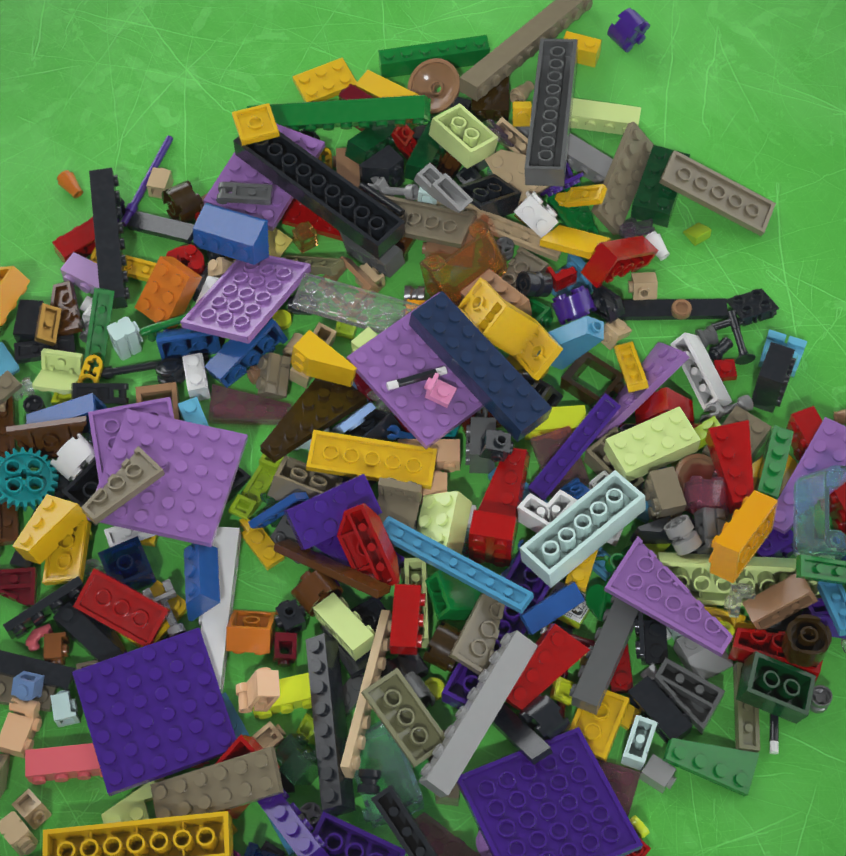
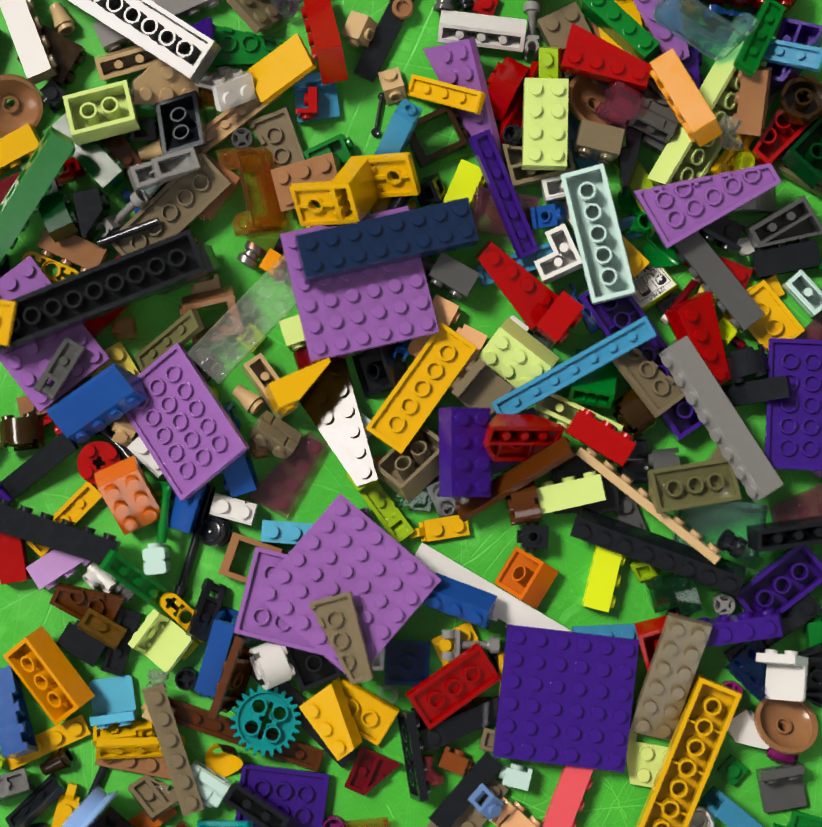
camera: 60 degrees left, 25 degrees up
(259, 691) = (602, 600): light nougat hinge -> none
(270, 735) = (637, 607): tan bracket -> none
(277, 510) = (429, 499): blue tile -> none
(284, 641) = (568, 554): dark red brick -> none
(354, 419) = (364, 382): light blue piece -> none
(415, 378) = (368, 306): black bar -> none
(435, 686) = (661, 440): neon yellow tile -> none
(439, 391) = (393, 291): bright pink bracket -> none
(495, 445) = (478, 269): black brick -> none
(499, 132) = (113, 76): plate -> none
(521, 113) = (103, 38): yellow brick -> none
(534, 283) = (307, 134): black wheel -> none
(552, 608) = (653, 300): blue tile -> none
(574, 305) = (350, 110): dark purple brick -> none
(582, 196) = (235, 31): yellow hinge -> none
(608, 304) = (363, 79): black hinge -> none
(683, 536) = (649, 149): light grey wheel -> none

